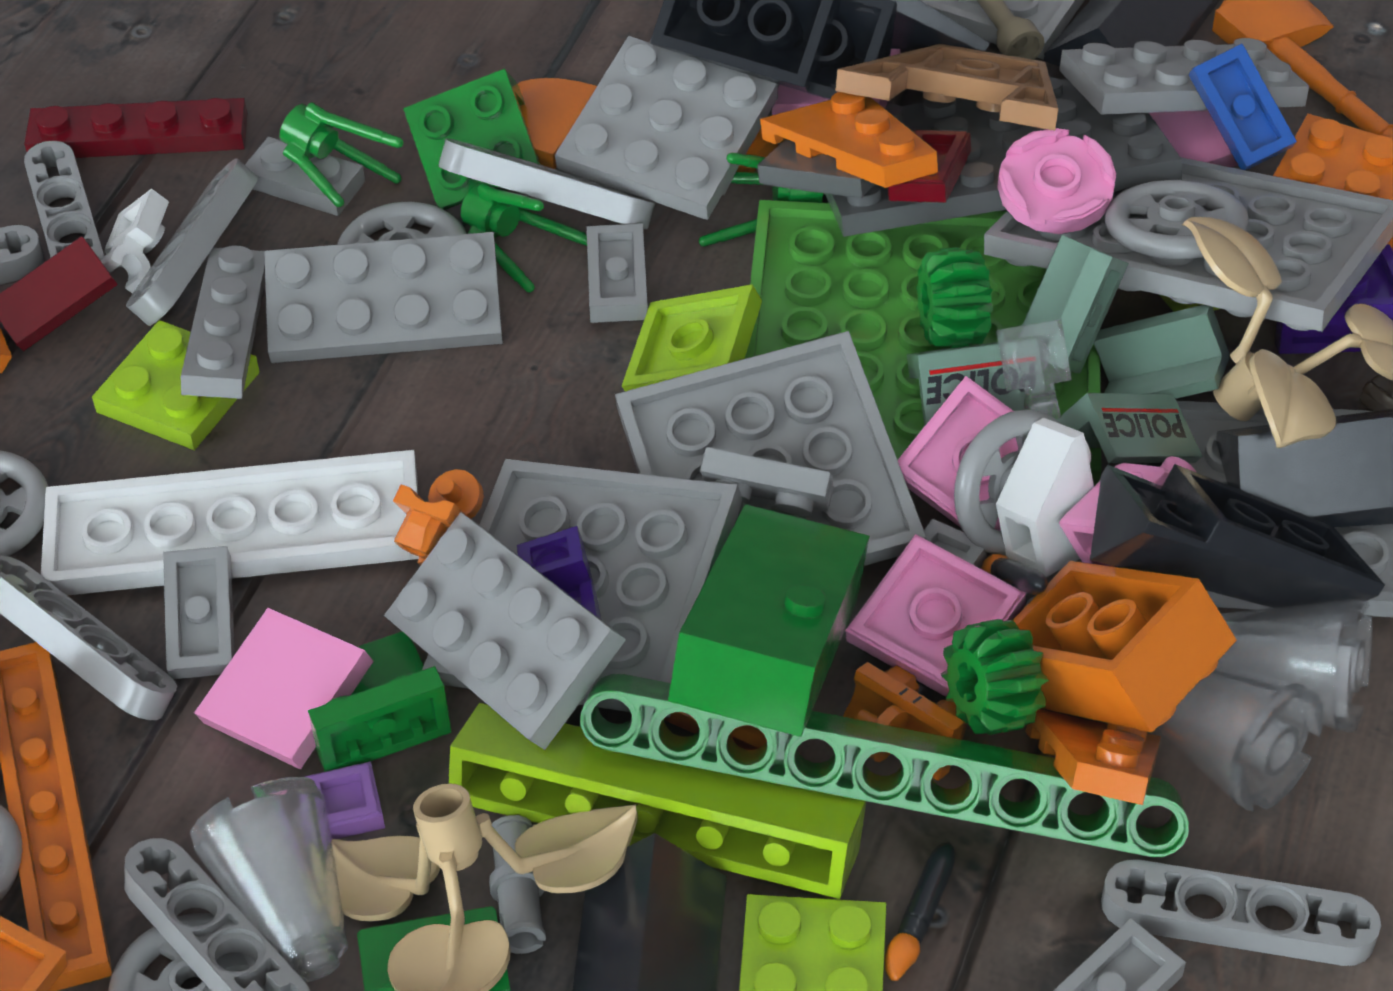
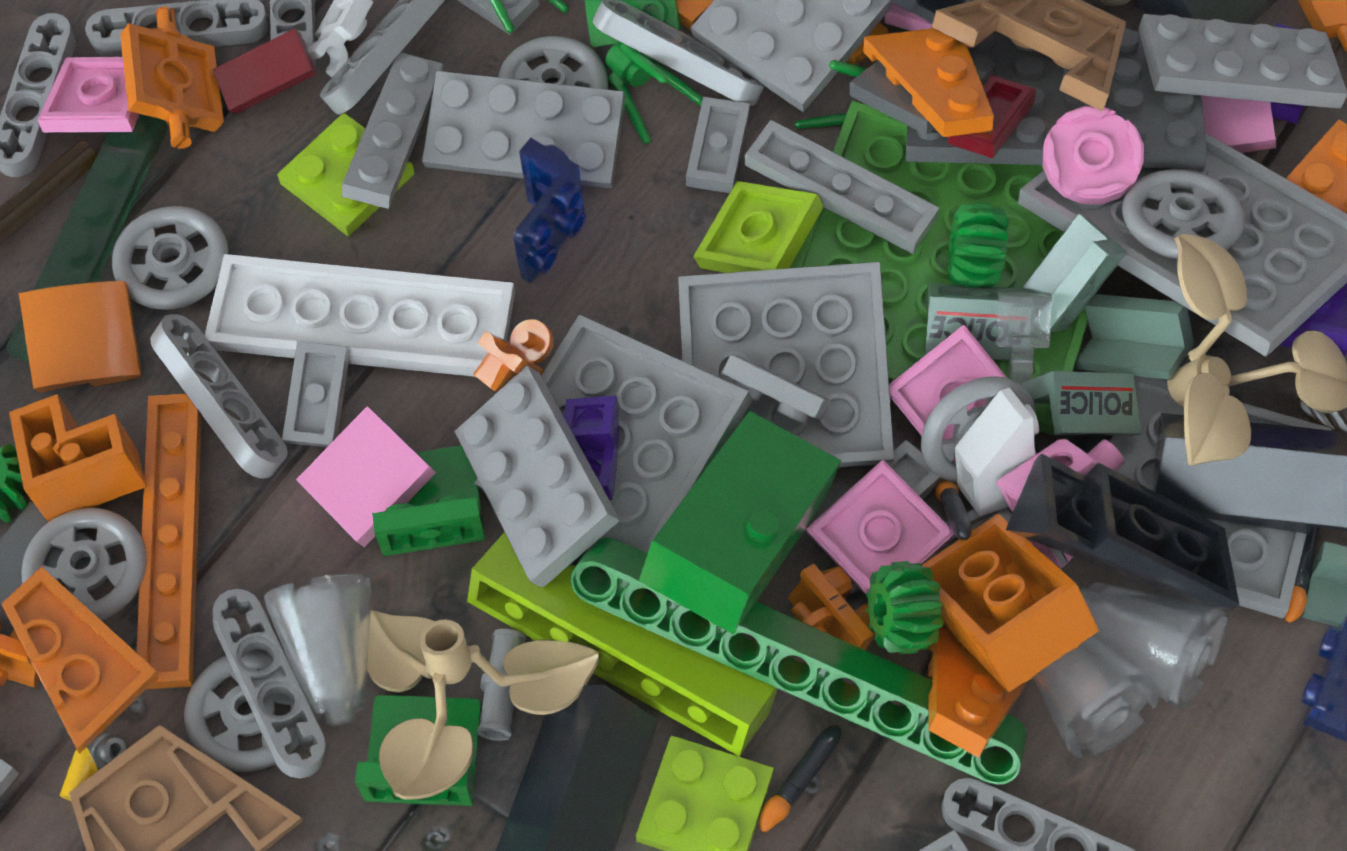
camera: 15 degrees right, 15 degrees up
(350, 800) = (394, 580): medium lavender tile -> none
(436, 357) = (558, 208): none -> clear blue bracket
(779, 276) = (842, 186): none -> light grey plate
(1242, 107) = (1277, 111): blue plate -> none

